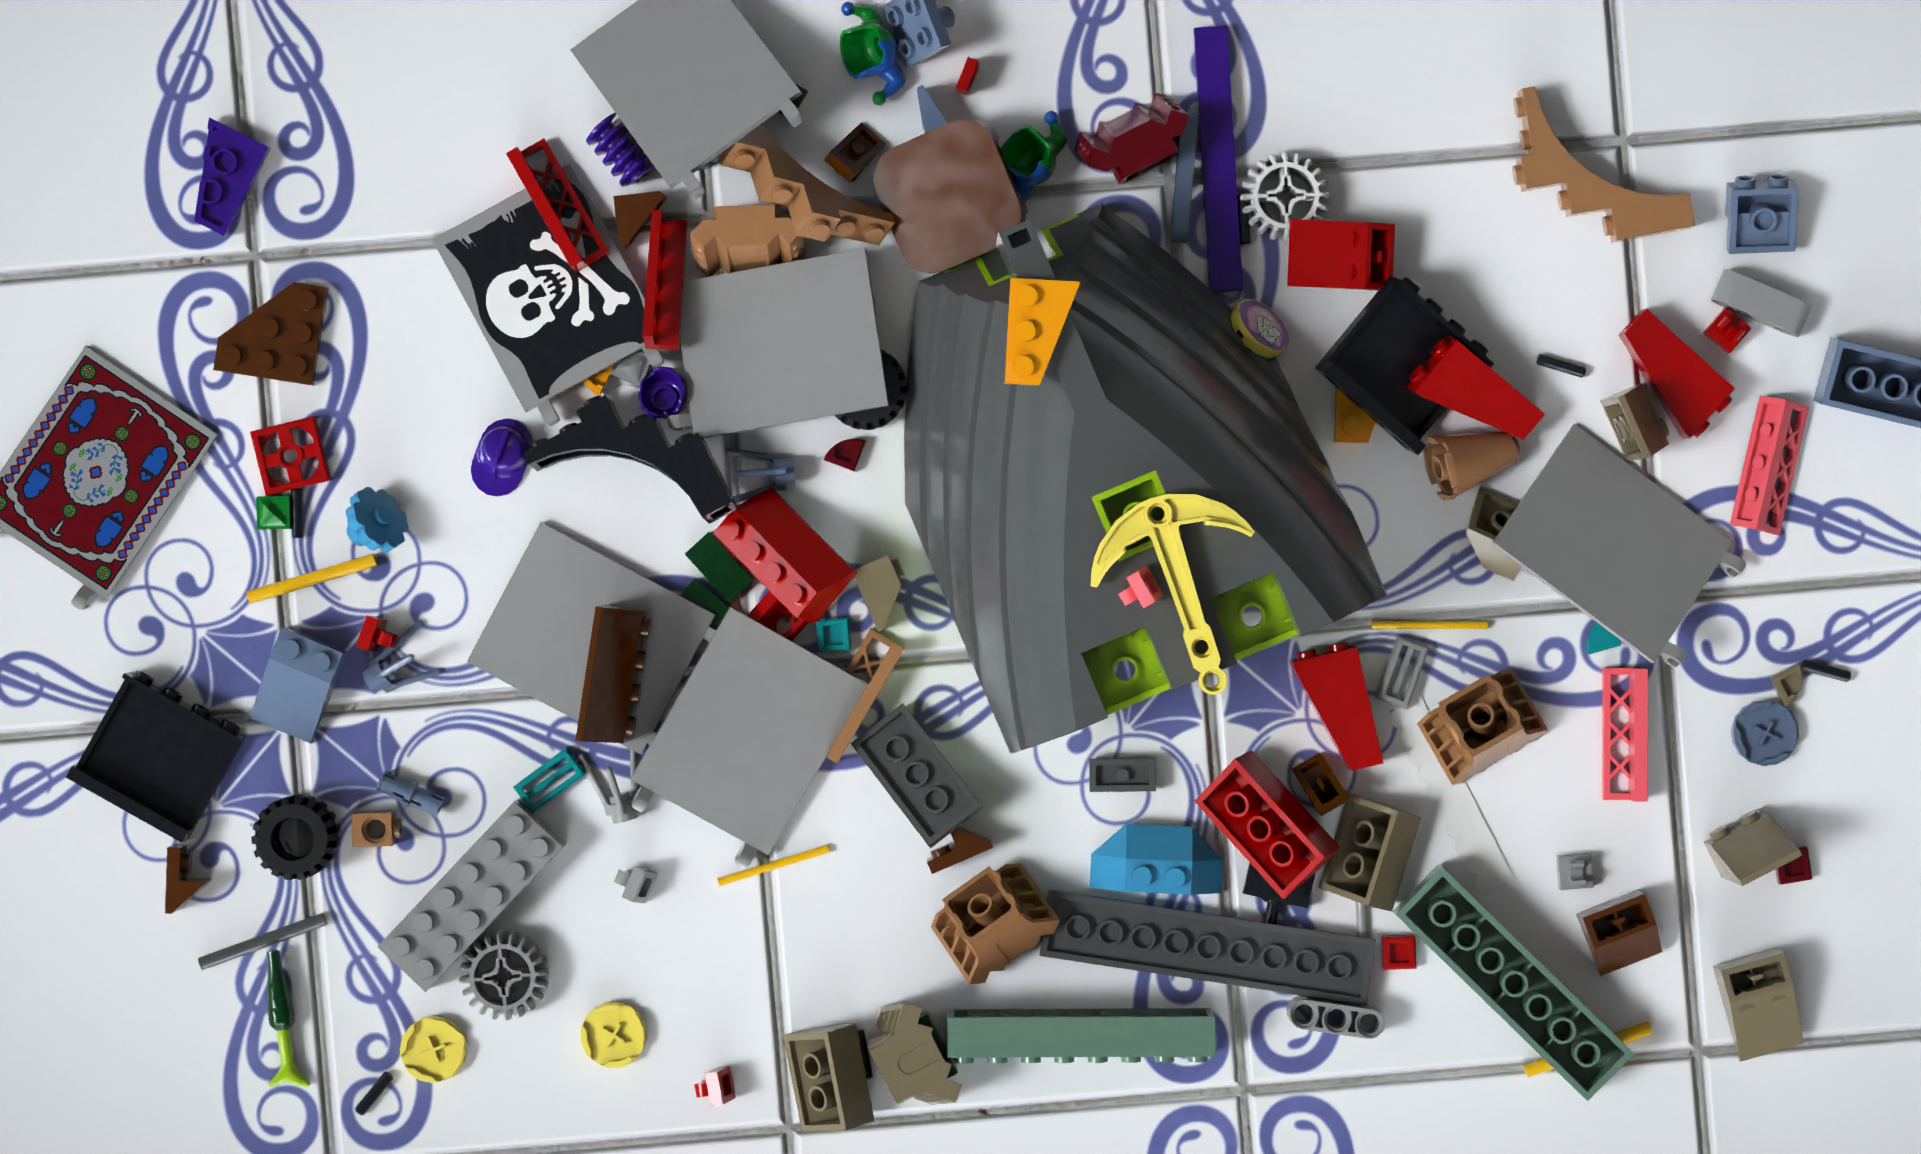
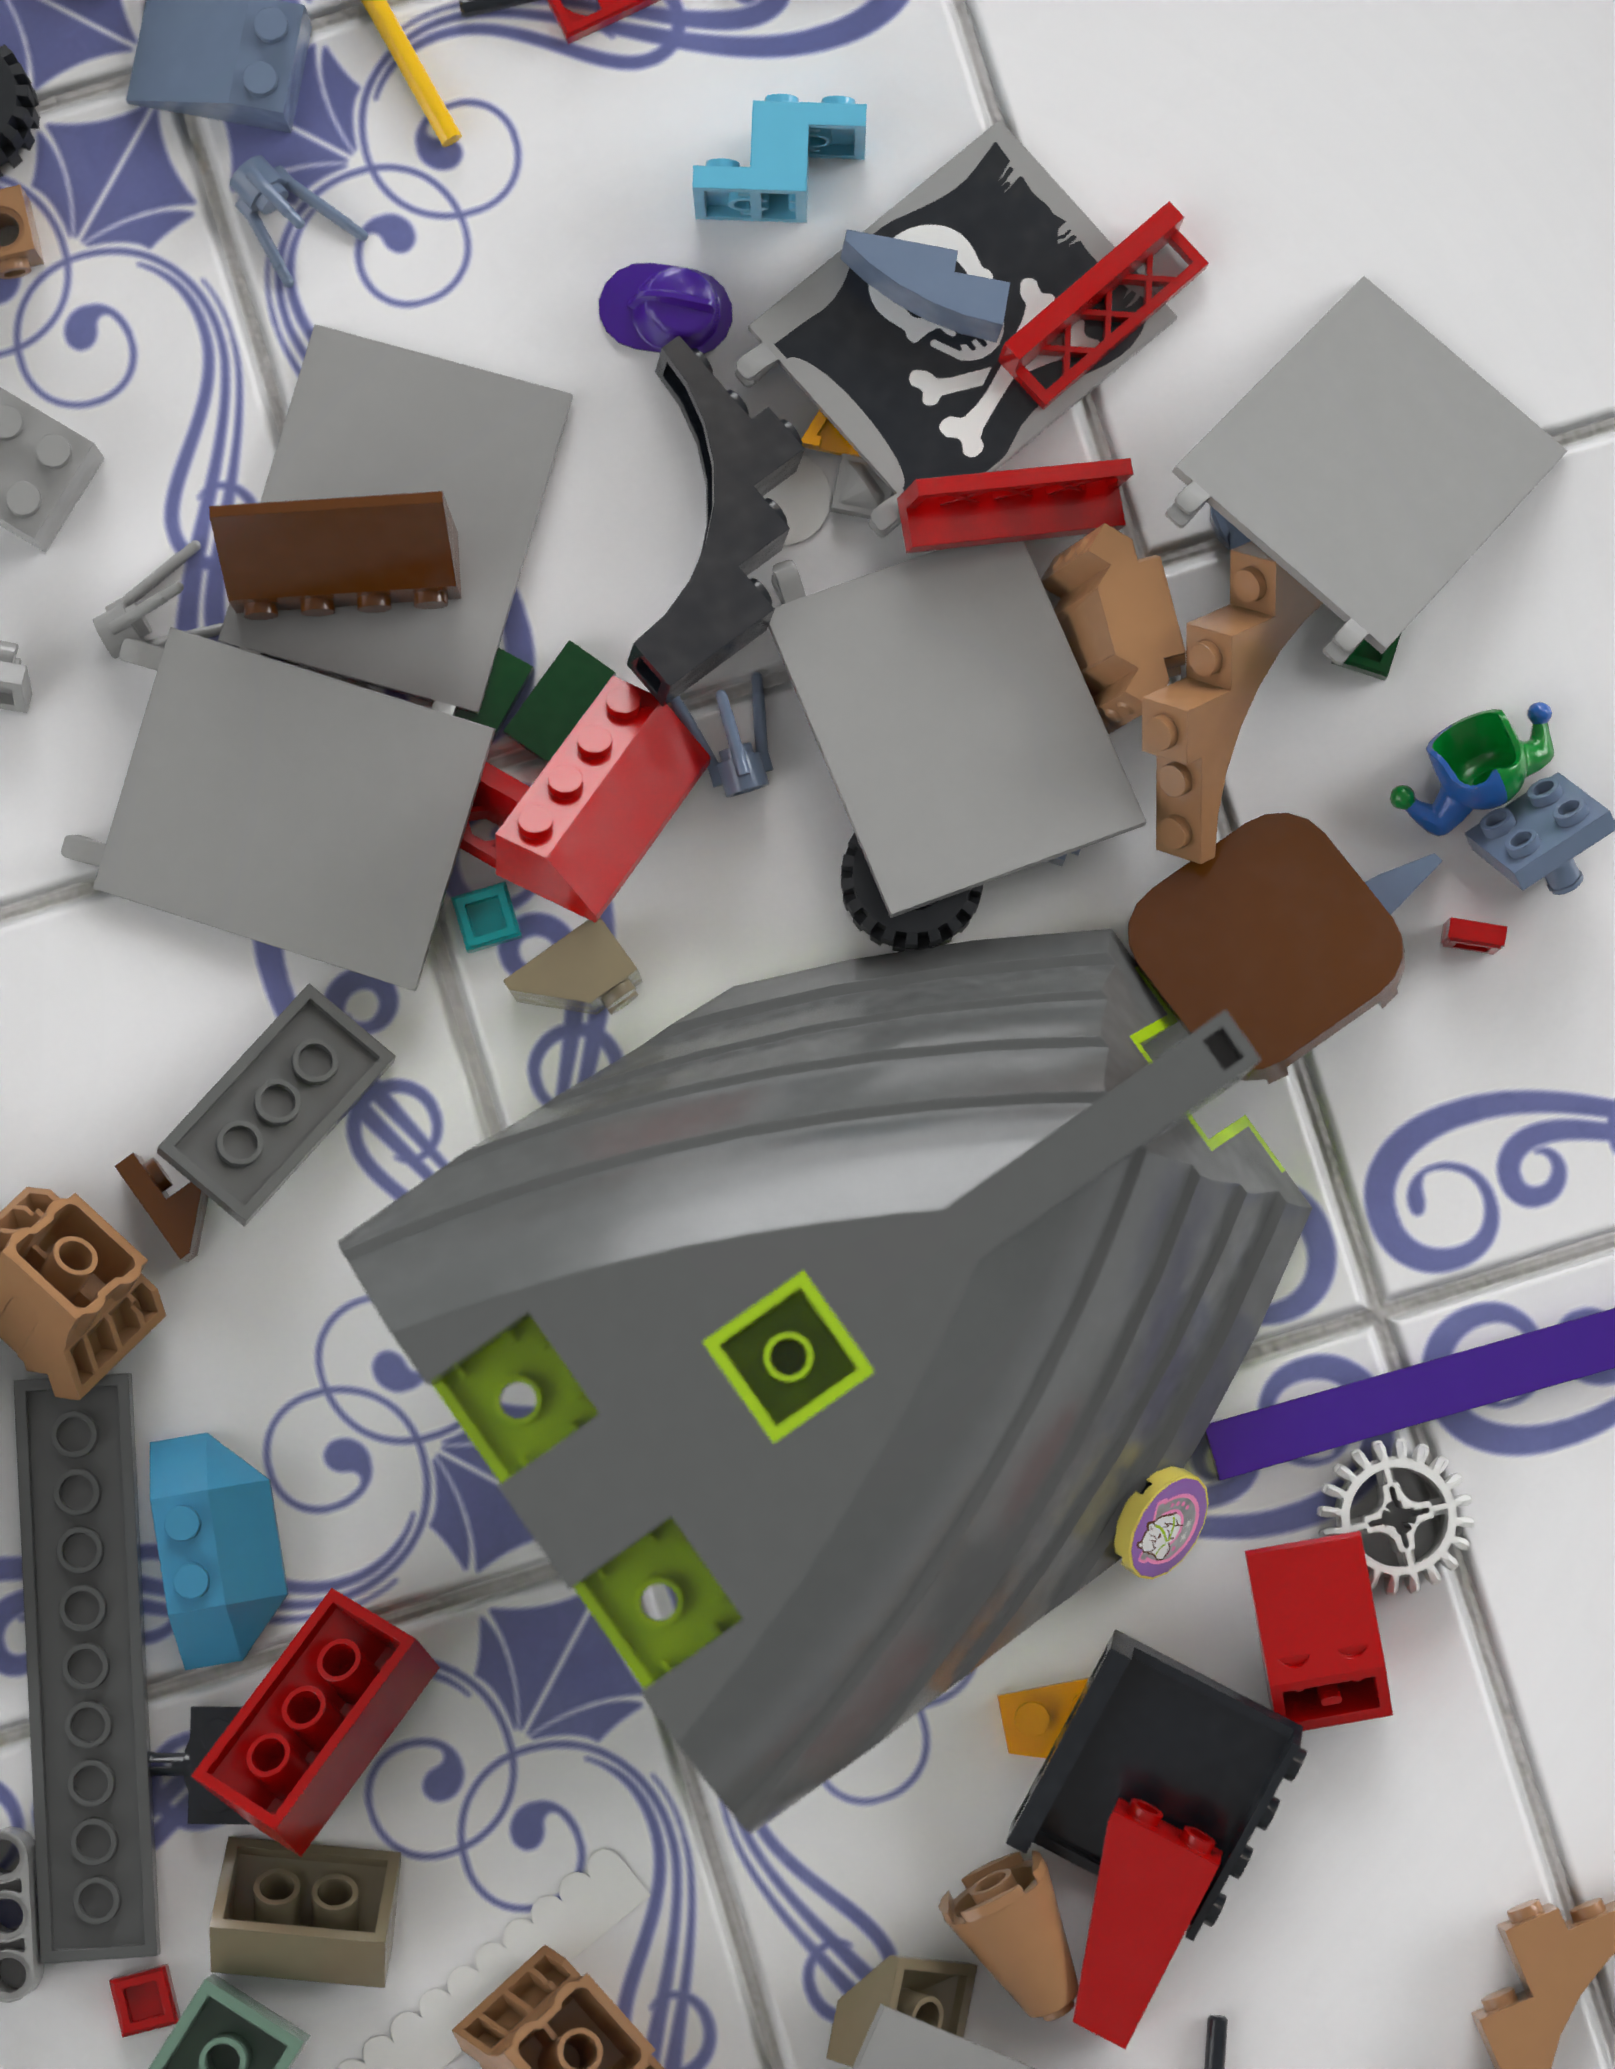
camera: 80 degrees right, 5 degrees down
(374, 634) = (326, 162): red tile -> none
(376, 520) = (516, 122): dark azure plant -> none
(410, 793) = (75, 277): sand blue pin -> none
(431, 371) = (781, 143): none -> medium azure bracket
(524, 302) = (926, 283): none -> sand blue slope
(572, 763) = (180, 532): teal tile -> none
(619, 151) = (1213, 385): dark purple piece -> none
(634, 213) = (1116, 432): reddish brown slope -> none
(663, 393) = (829, 545): dark purple hair -> none
(773, 865) = (78, 901): yellow axle -> none
(846, 453) = (795, 872): dark red tile -> none
(855, 152) = (1301, 776): reddish brown slope -> none
(870, 693) = (401, 998): medium nougat fence -> none
(1032, 155) = (1364, 1073): green piece -> none
(1034, 325) = (1077, 1105): light orange wing -> none
(1122, 774) = (351, 1455): dark grey plate -> none
(1135, 139) = (1430, 1240): dark red slope -> none
(1142, 588) = (663, 1391): coral tile -> none
(1169, 549) = (741, 1424): light yellow piece -> none
(1184, 182) = (1386, 1338): sand blue beam -> none
(1244, 227) = (1328, 1459): black piece -> none
(1320, 784) = (404, 1799): reddish brown slope -> none
(1341, 701) = (556, 1803): red slope -> none
(1361, 919) = (186, 1924): light grey piece -> none
(1392, 699) = (630, 1876): light grey tile -> none
(1429, 624) = (719, 1929): yellow axle -> none

